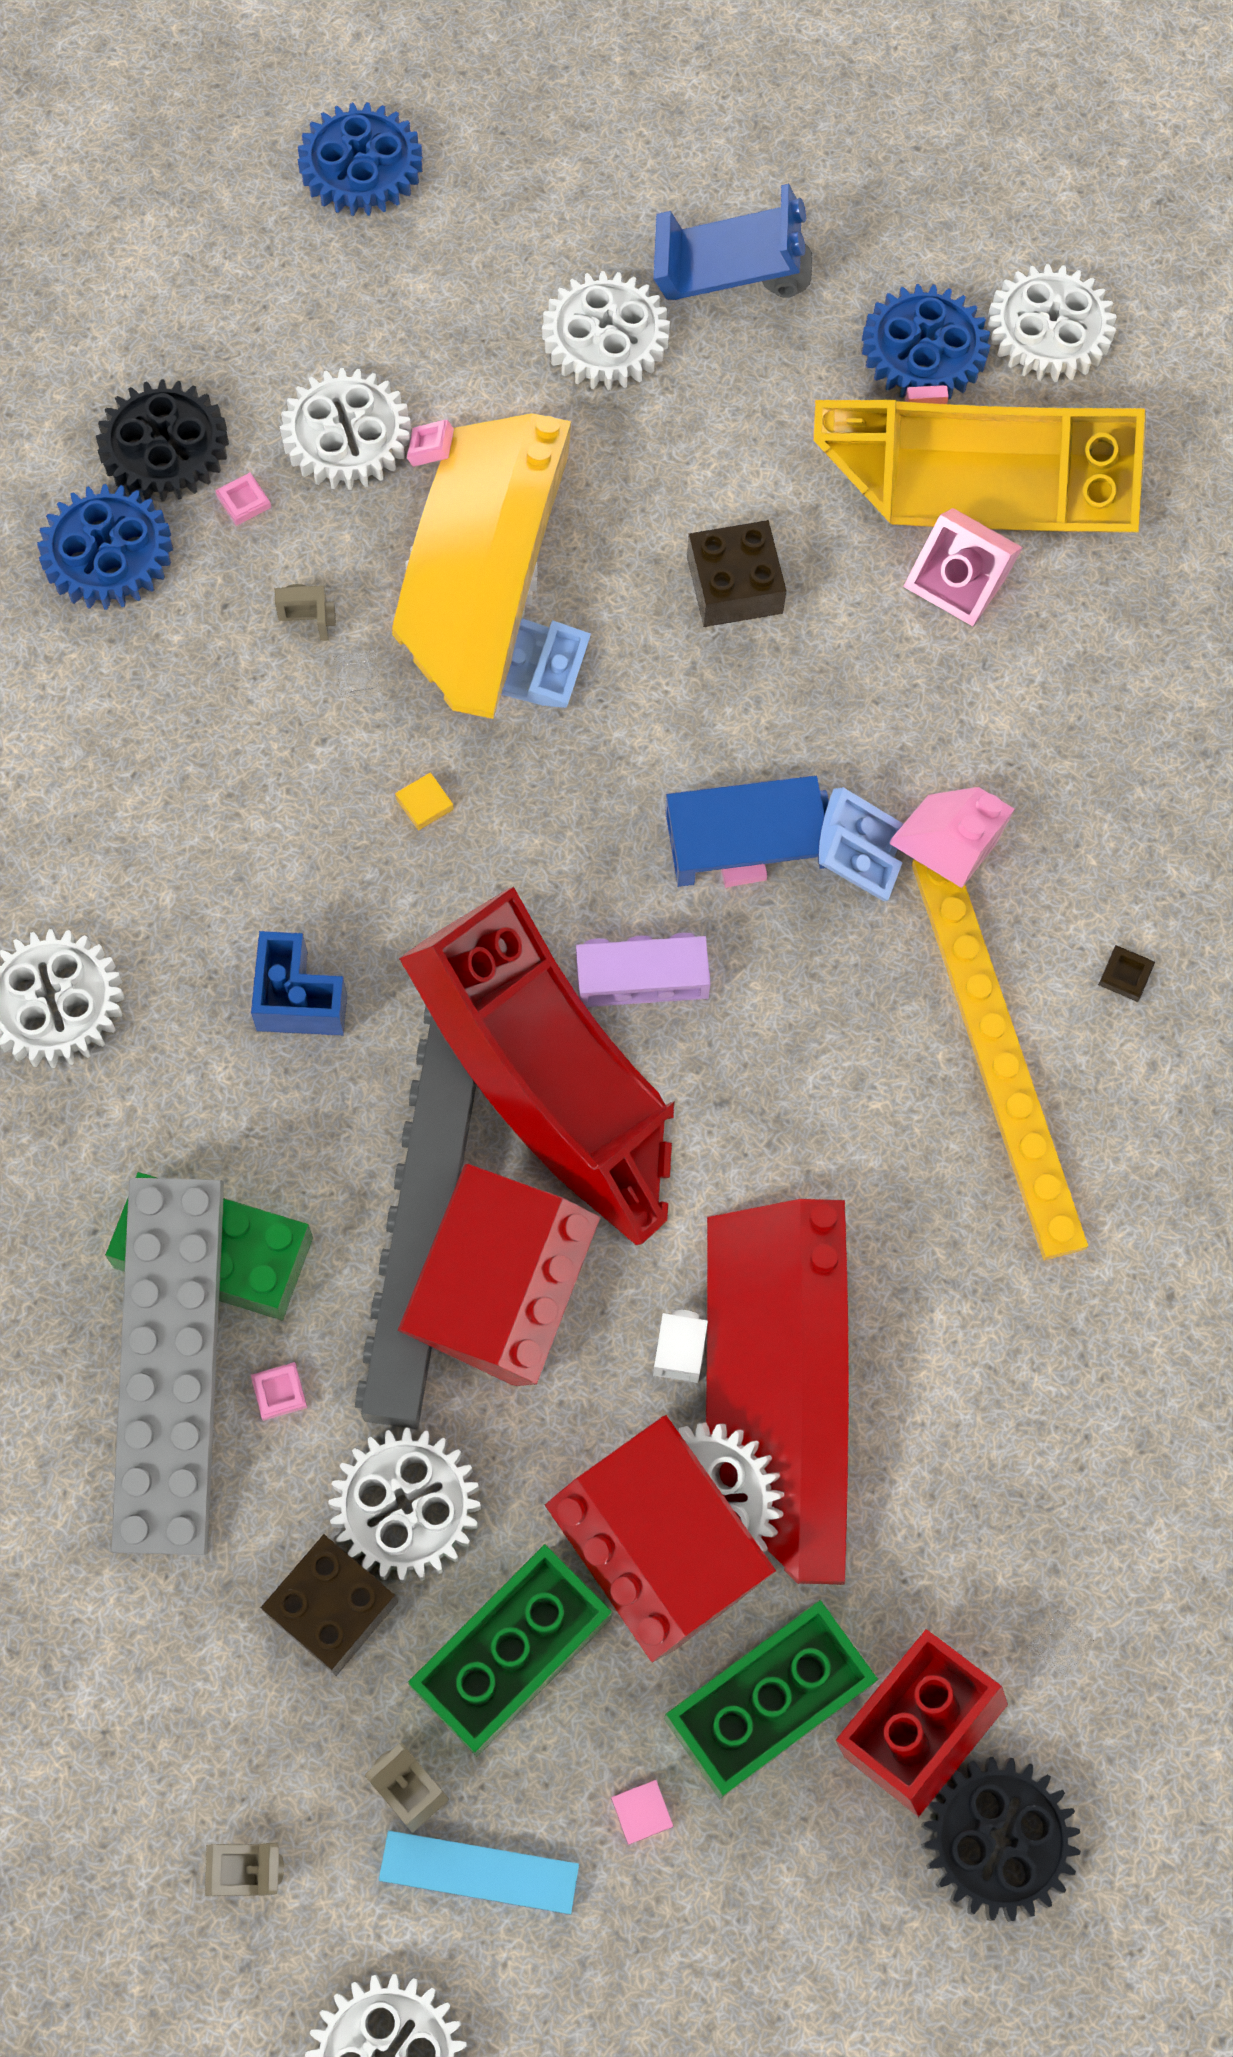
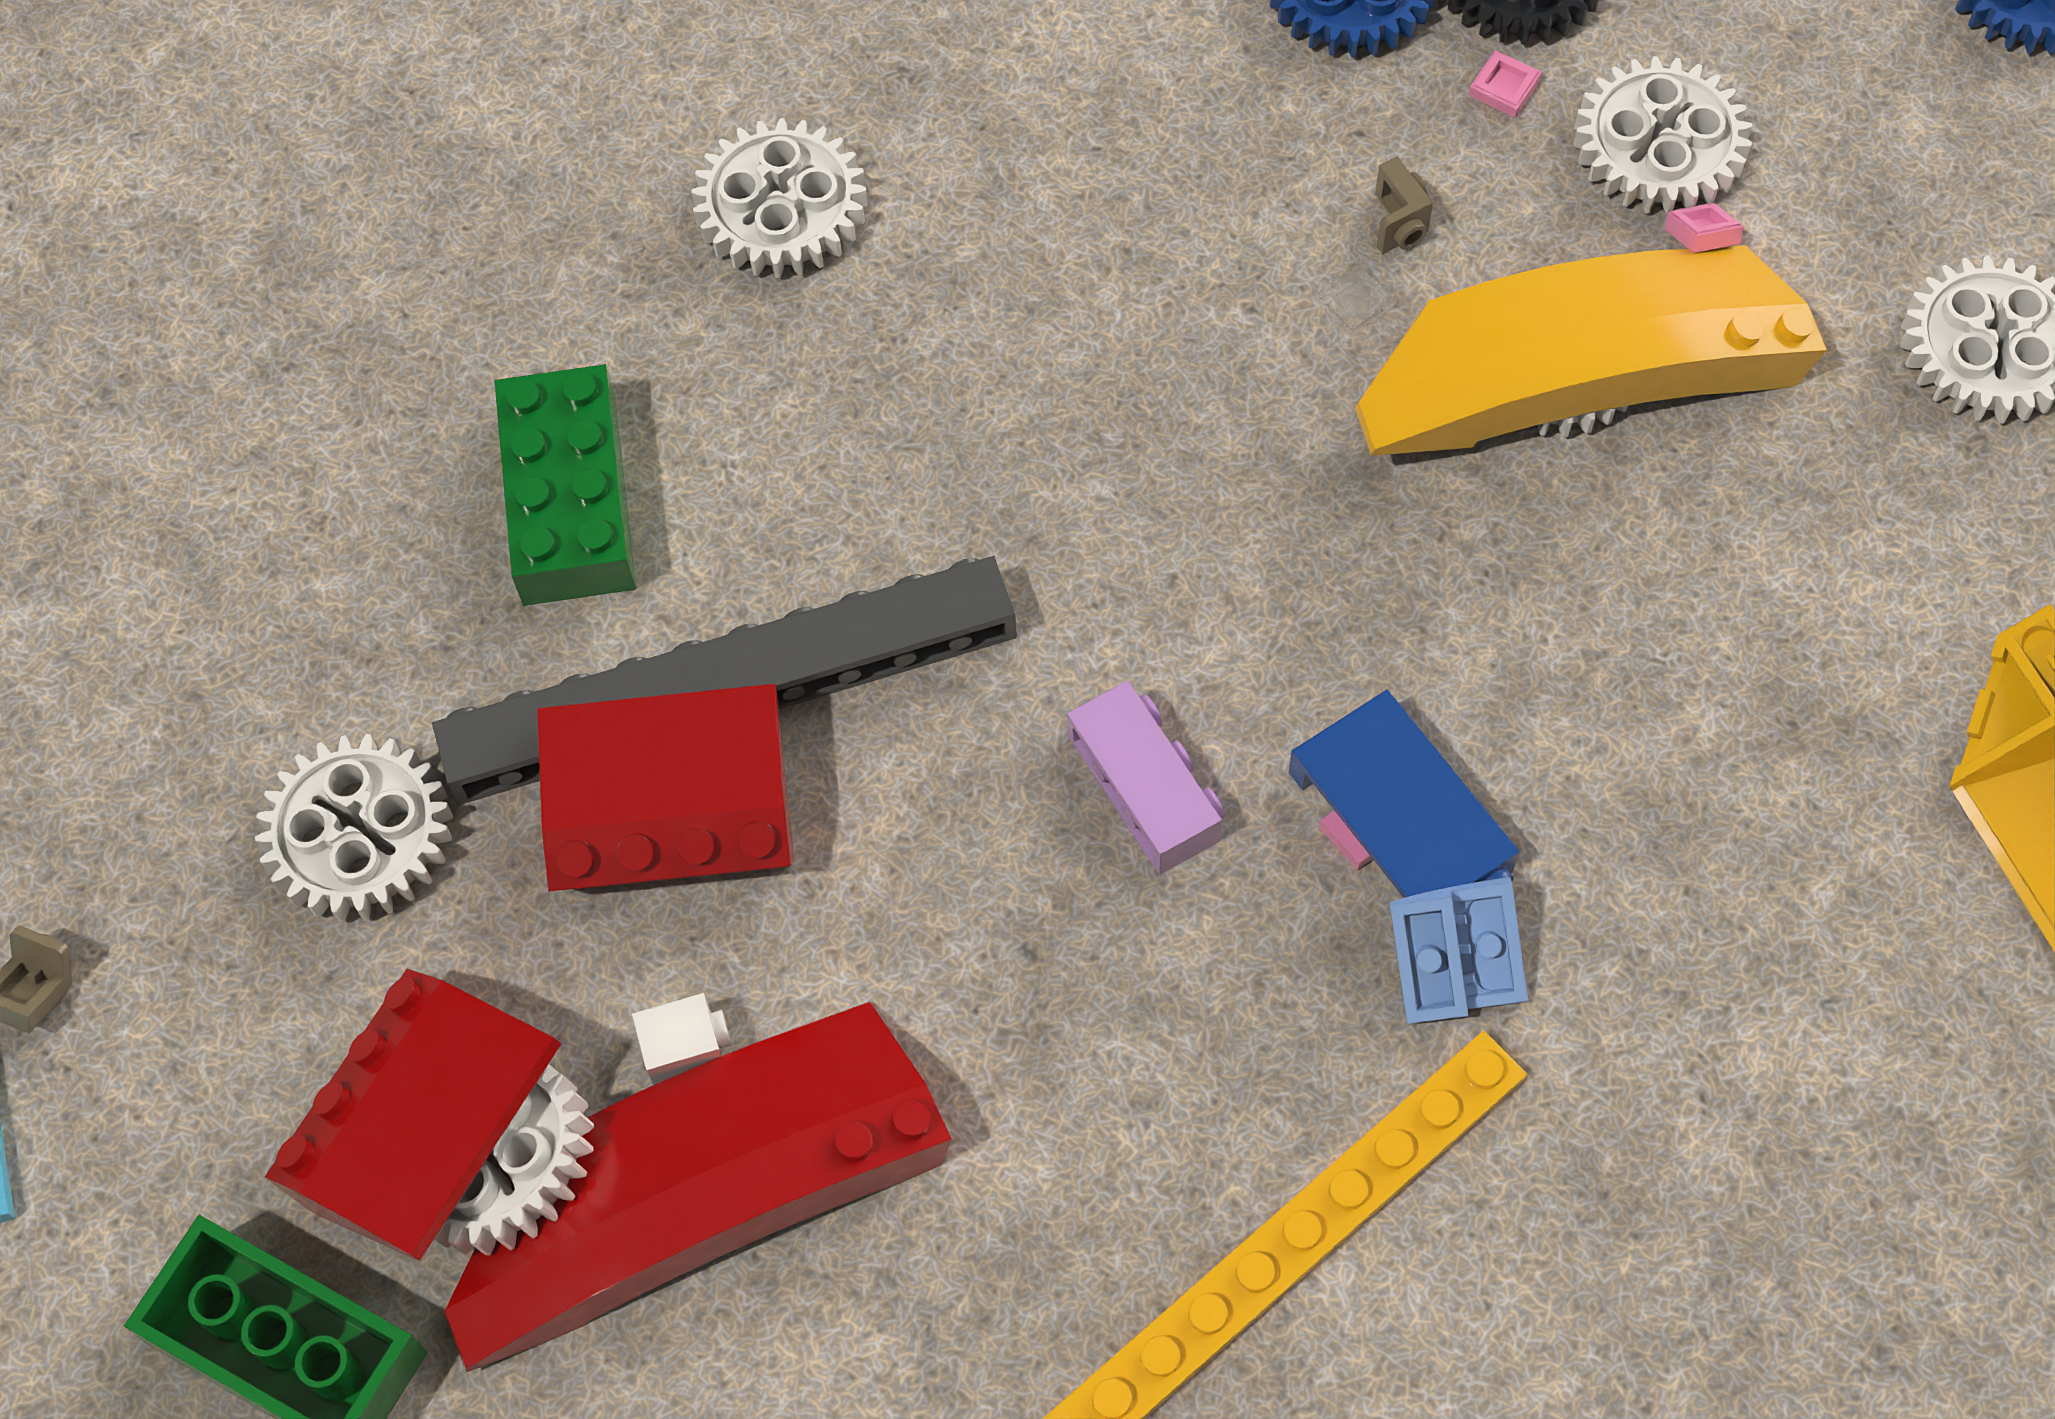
camera: 70 degrees right, 5 degrees down
(168, 1366) = (398, 502): light grey plate -> none
(278, 1391) = (436, 639): bright pink tile -> none
(289, 998) = (904, 409): blue brick -> none
(329, 1604) = (200, 801): dark brown brick -> none
(424, 801) = (1234, 445): yellow tile -> none
(510, 1650) = (220, 1014): green brick -> none
(545, 663) = (1493, 484): light blue slope -> none
(546, 1061) = (960, 720): red slope -> none
(642, 1812) = (97, 1259): bright pink tile -> none
(736, 573) = (1750, 636): dark brown brick -> none
(954, 831) = (1543, 1060): bright pink slope -> none
(962, 566) = (1950, 903): bright pink slope -> none
(1126, 973) = (1483, 1380): dark brown tile -> none

